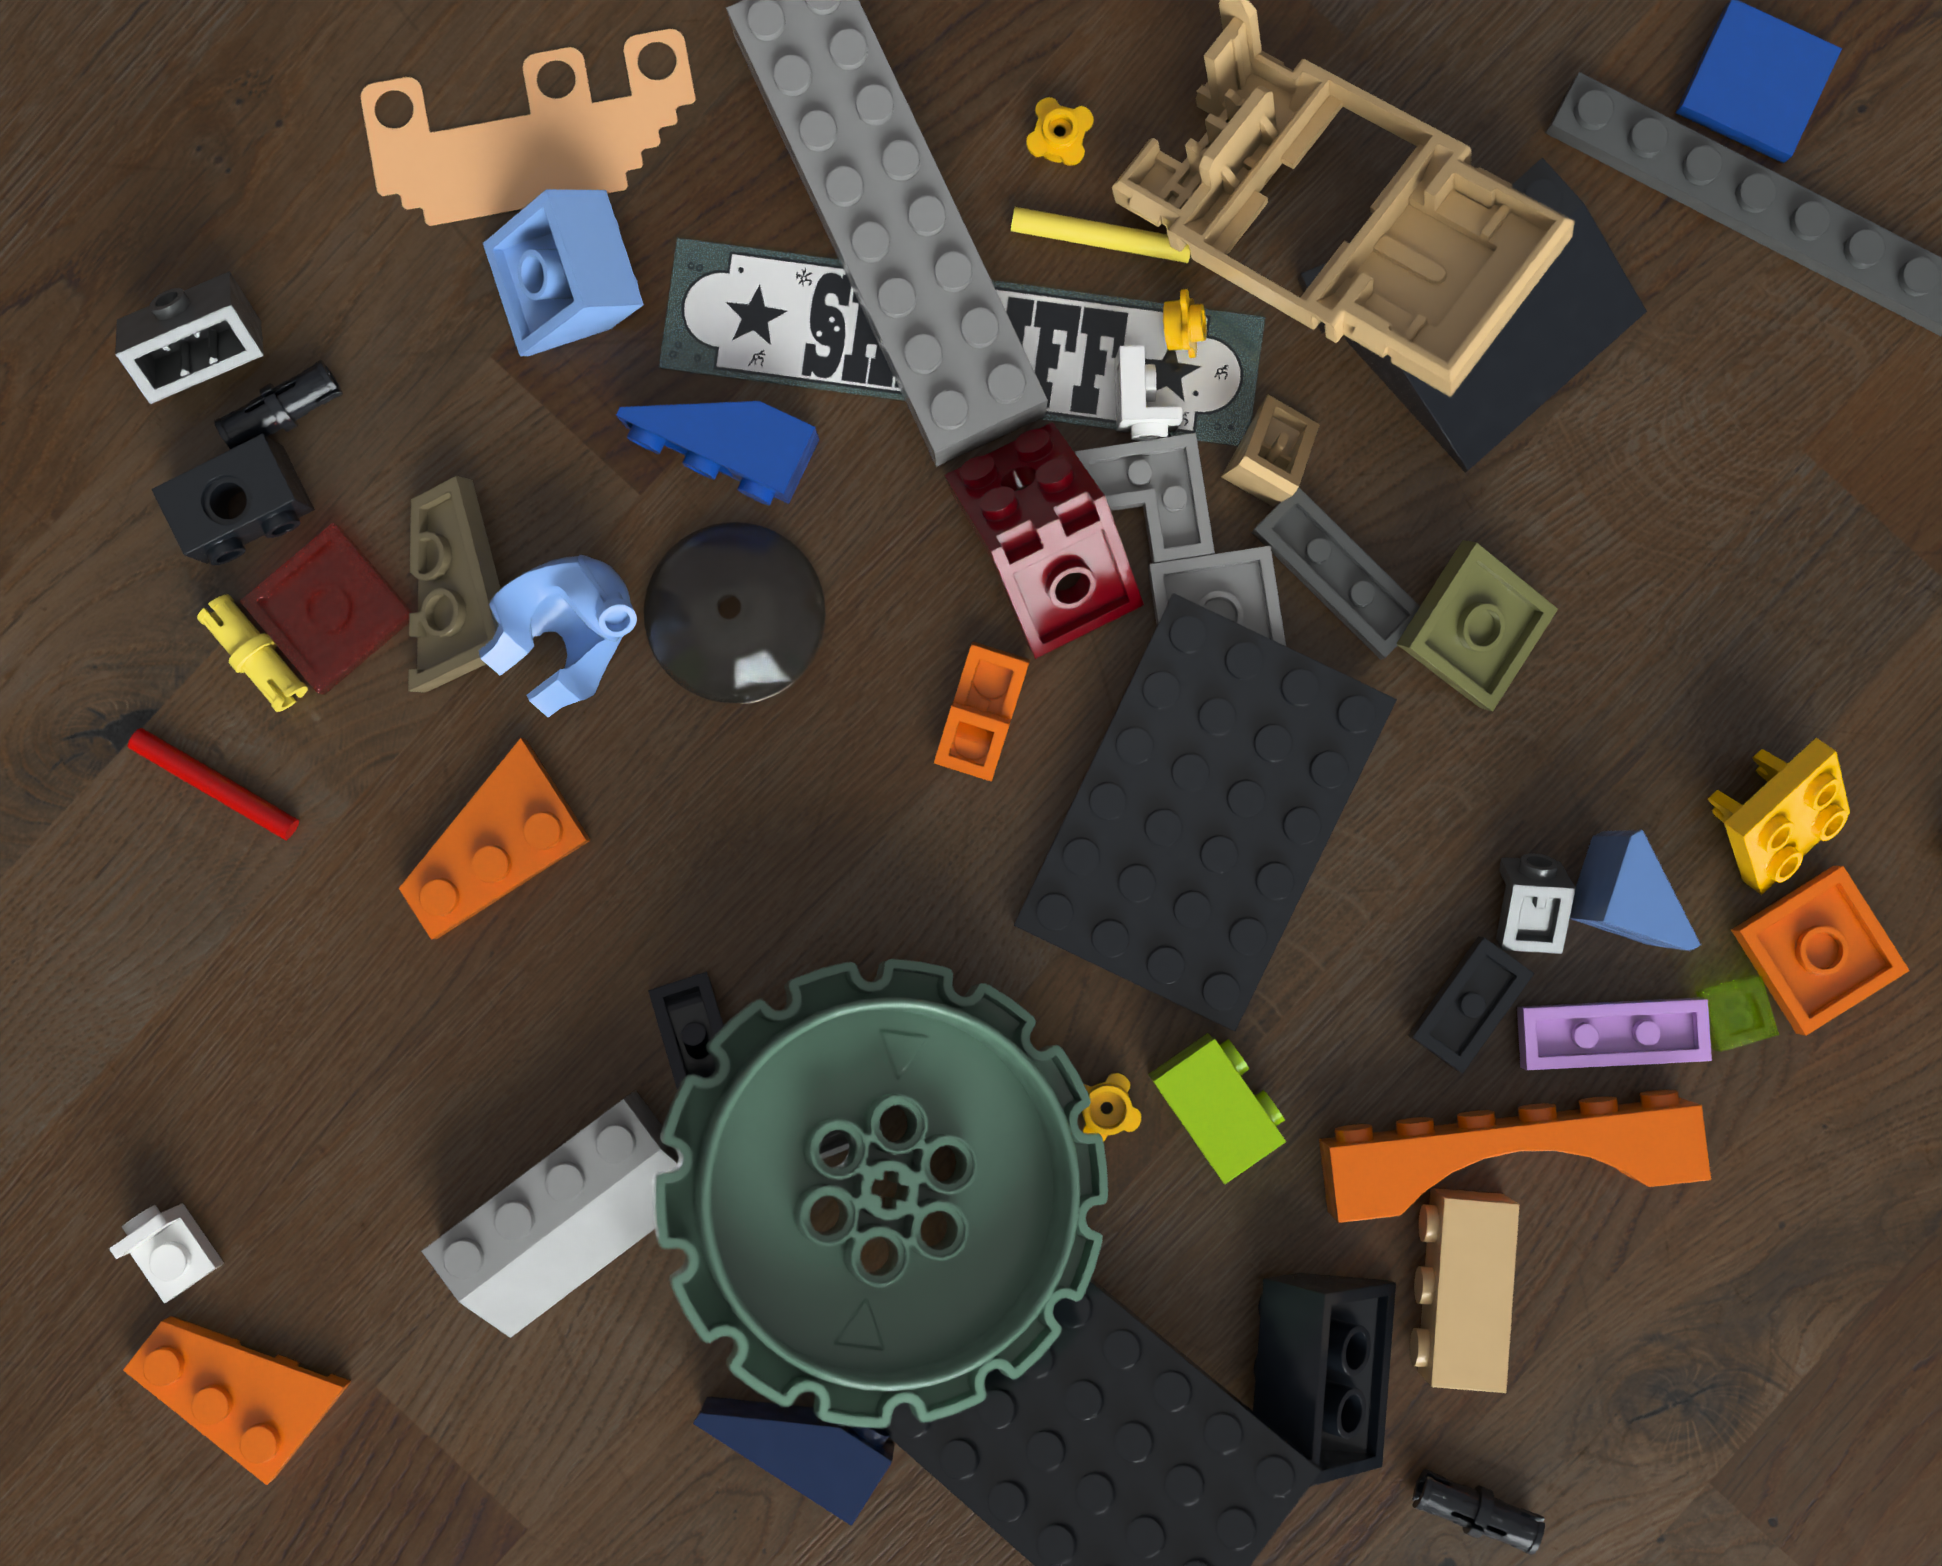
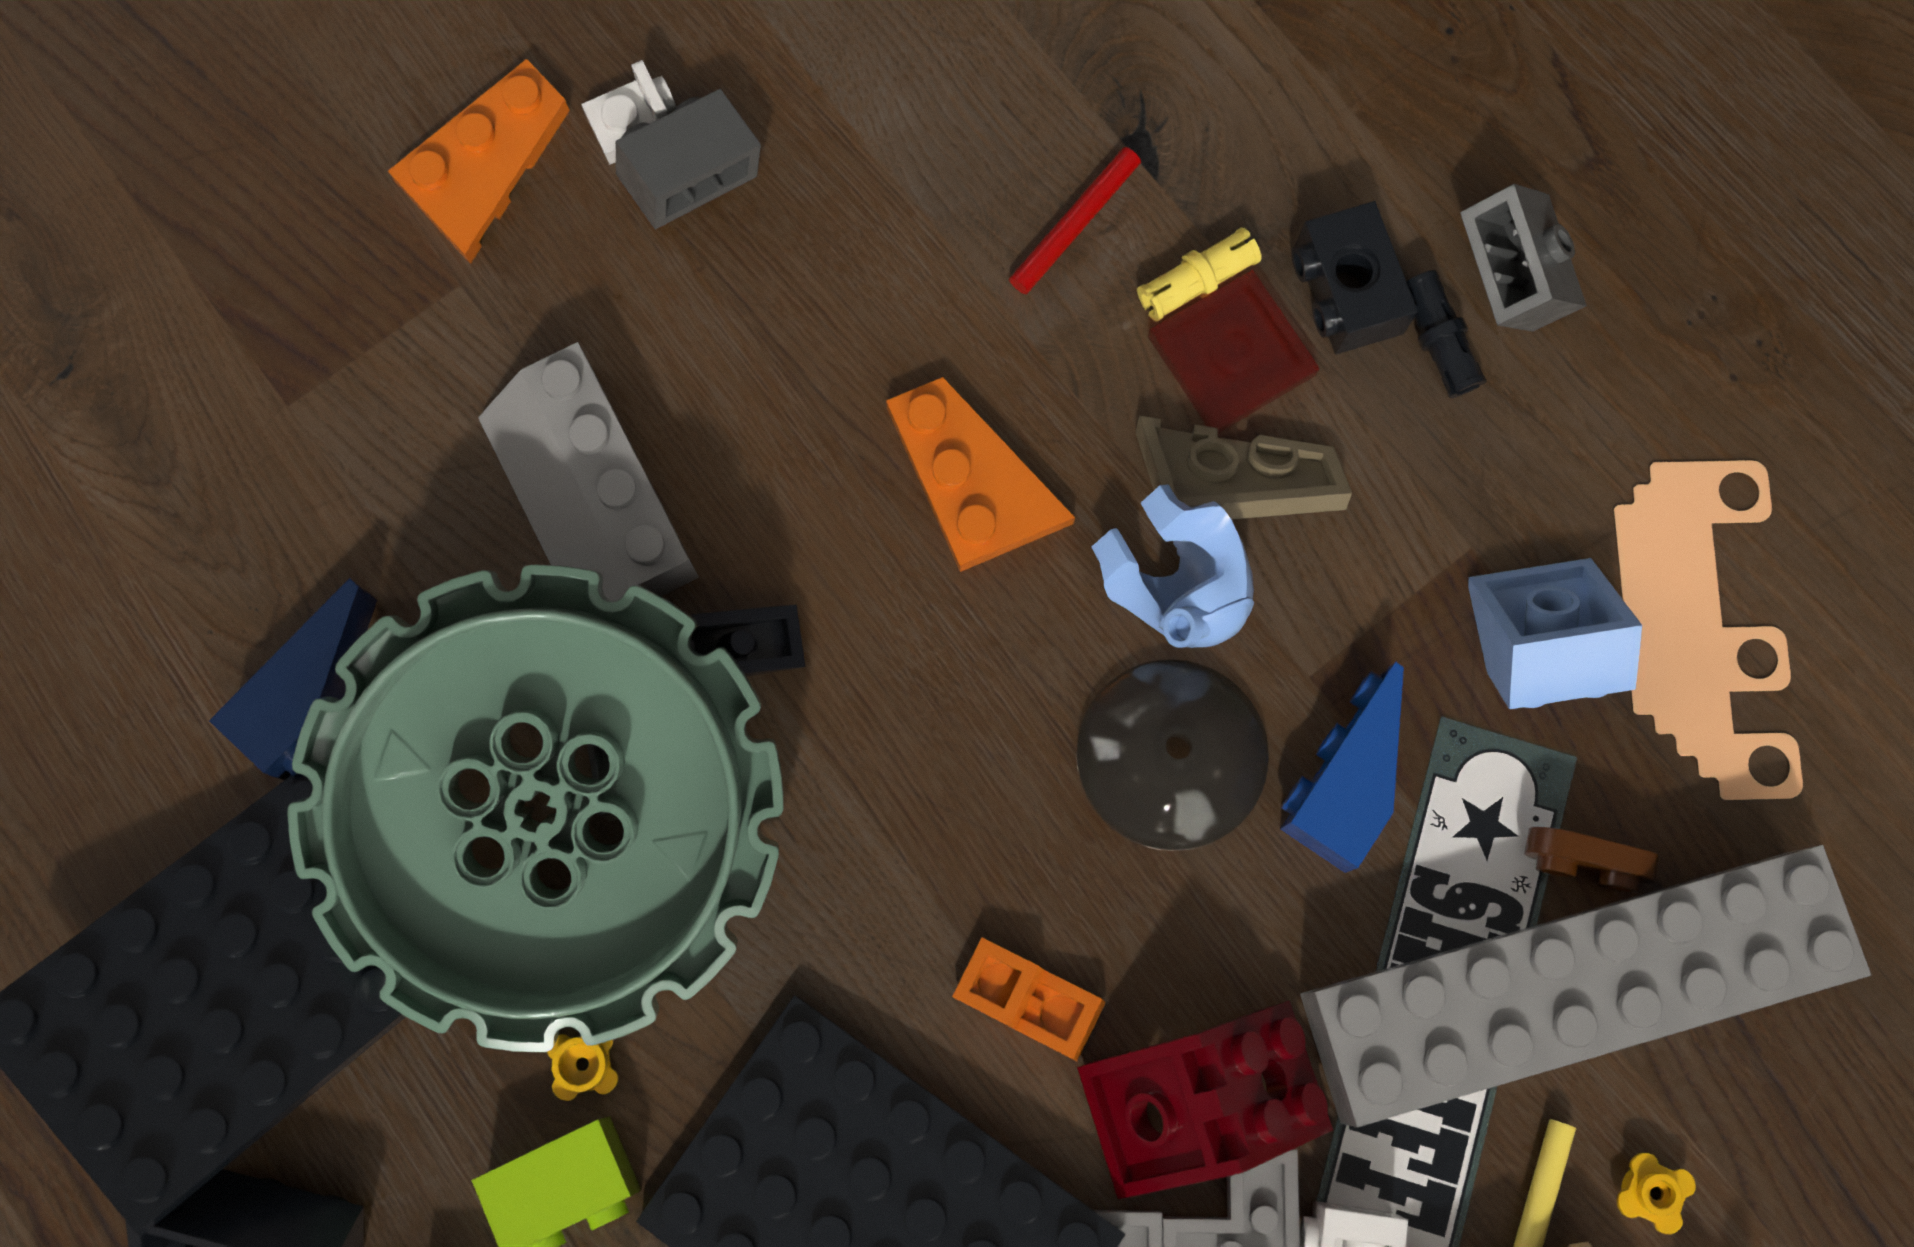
camera: 100 degrees right, 10 degrees down
(207, 1183) = (686, 157): none -> dark grey brick
(768, 239) = (1565, 852): none -> reddish brown plate

